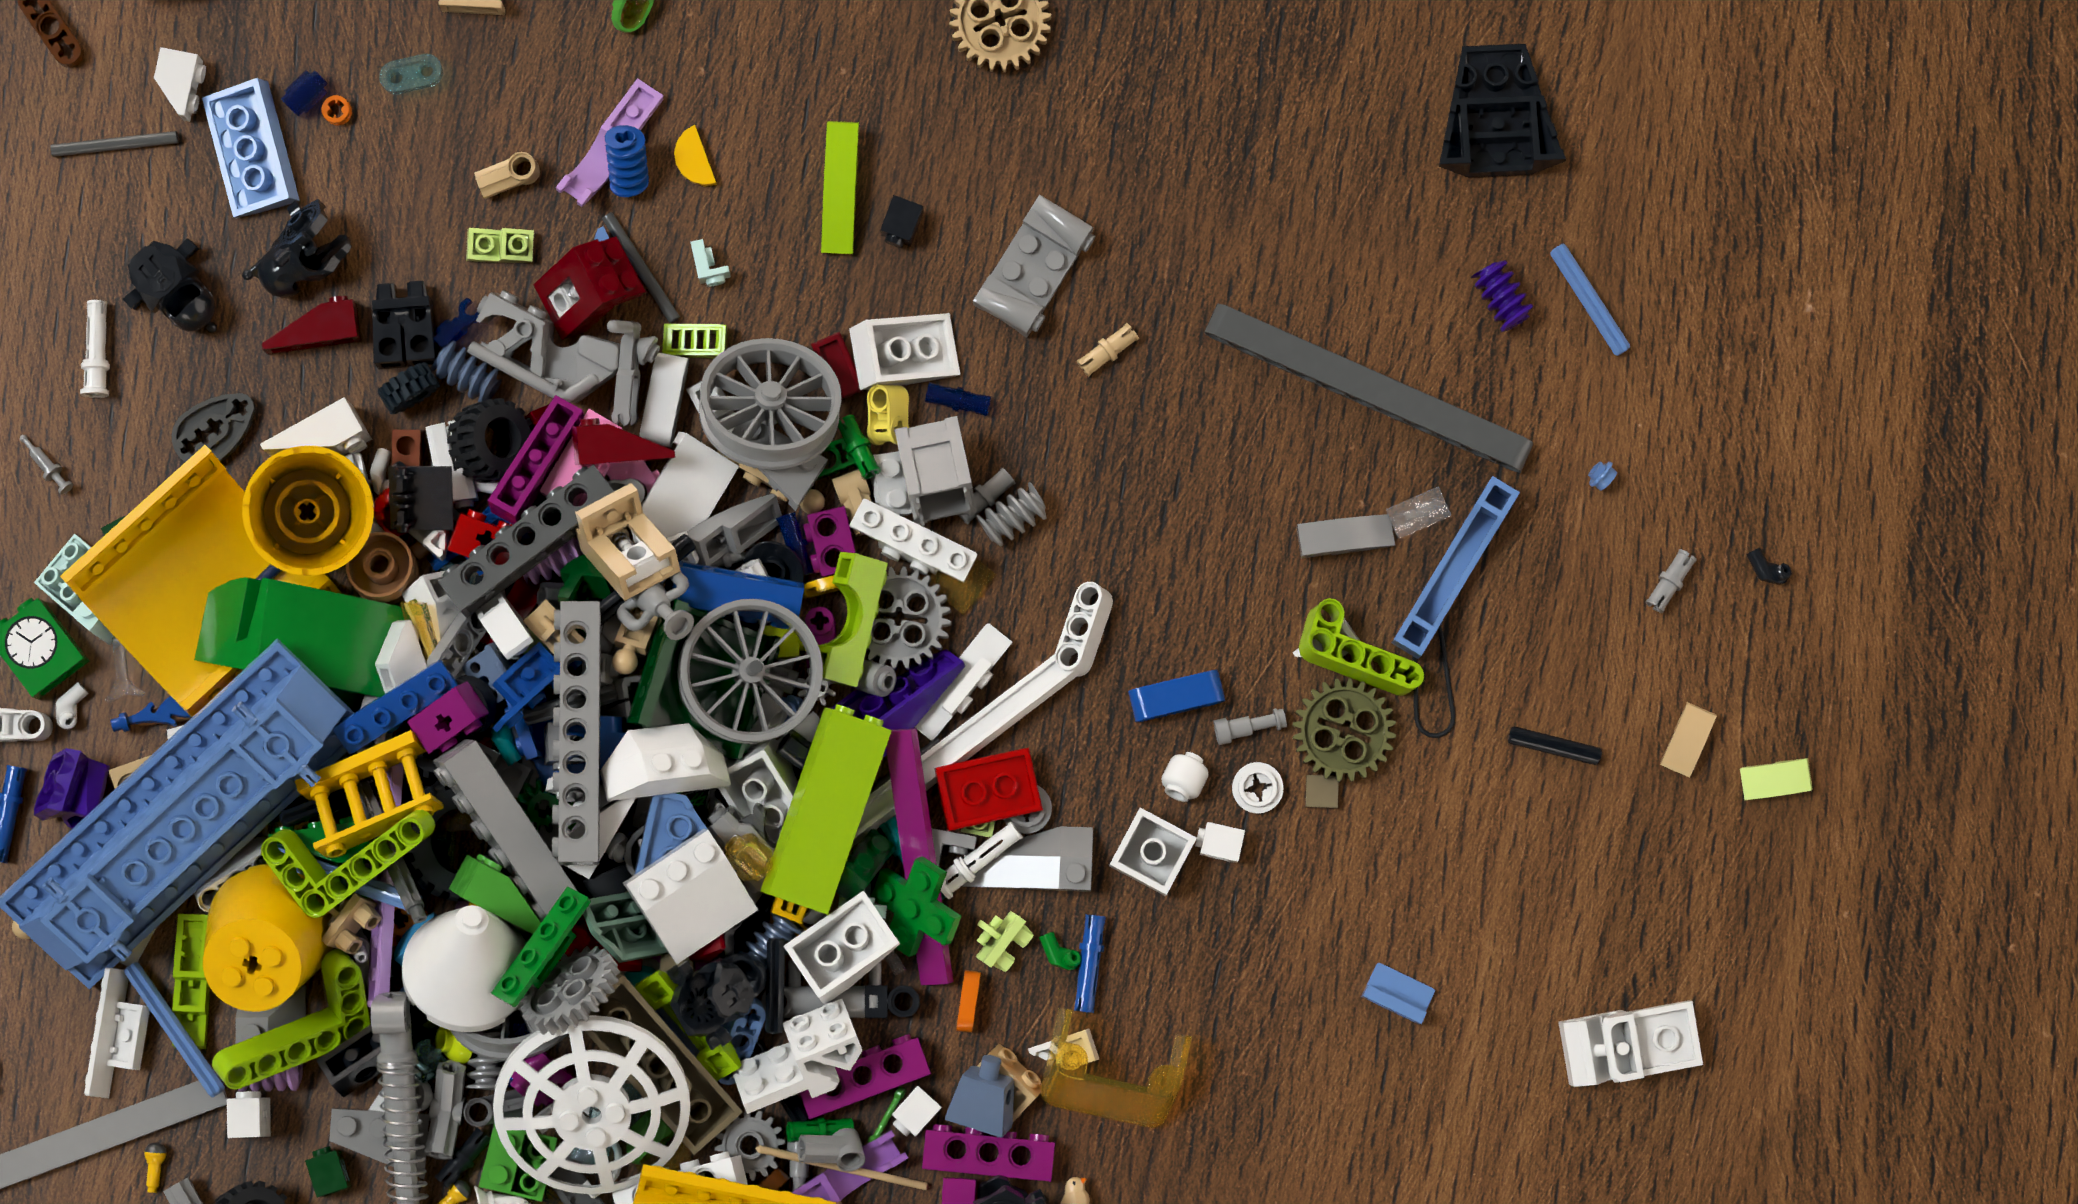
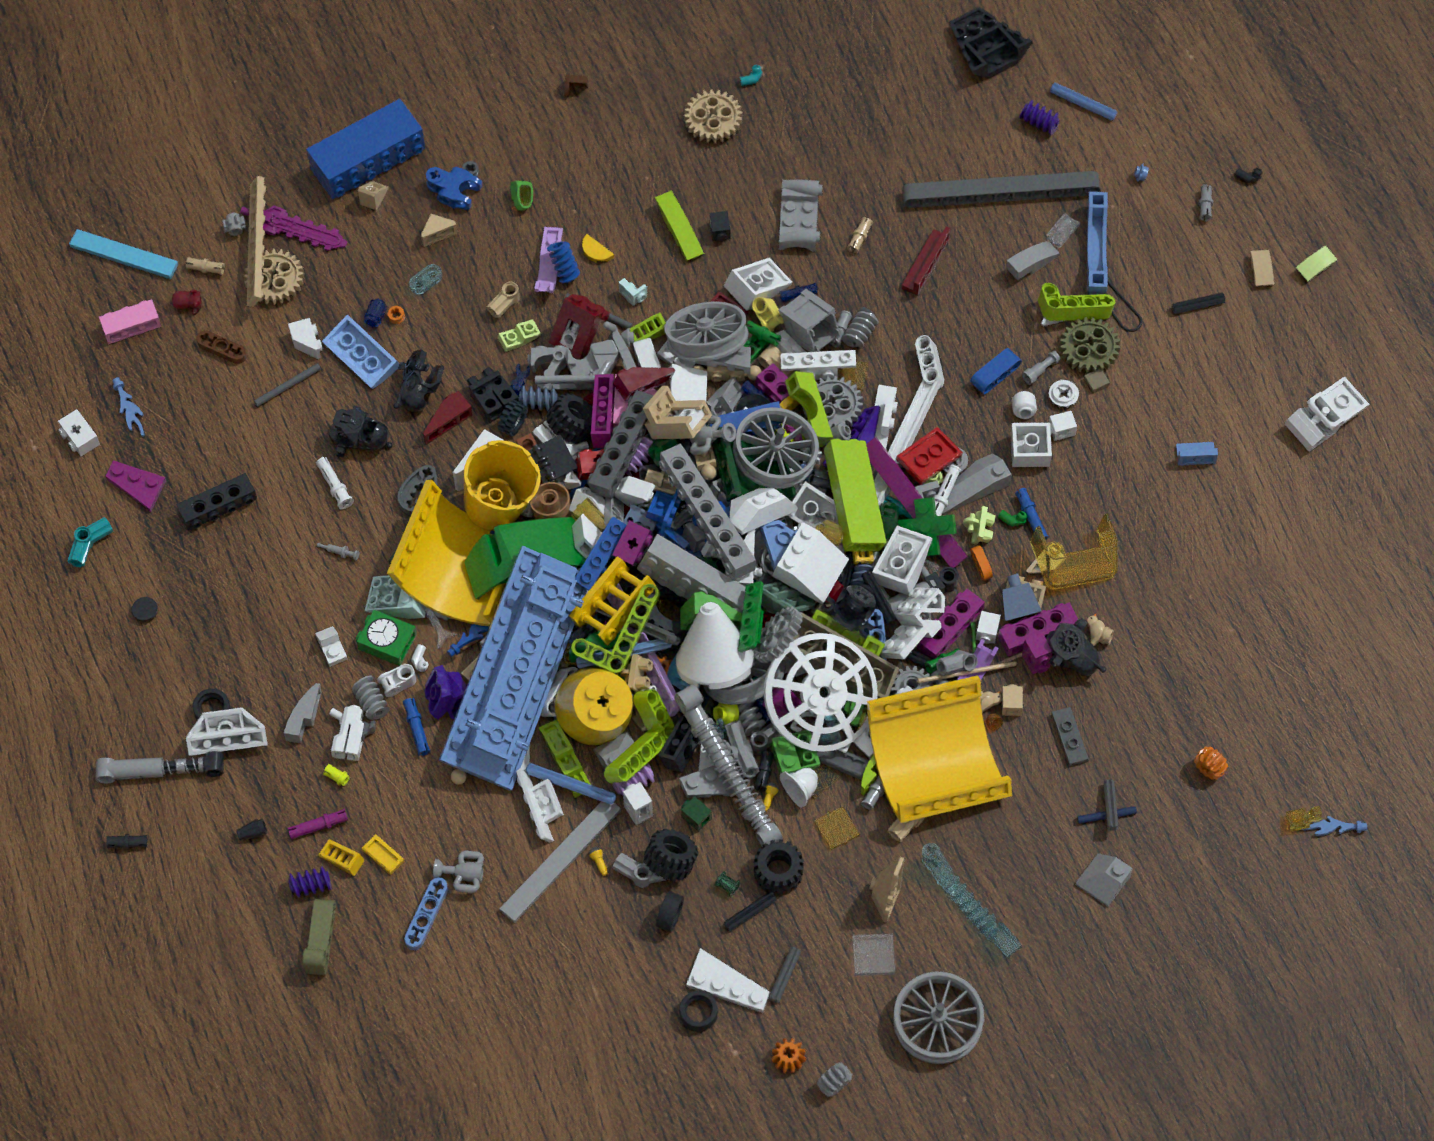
camera: 30 degrees left, 20 degrees down
(1182, 449) = (926, 261): none -> dark red fence

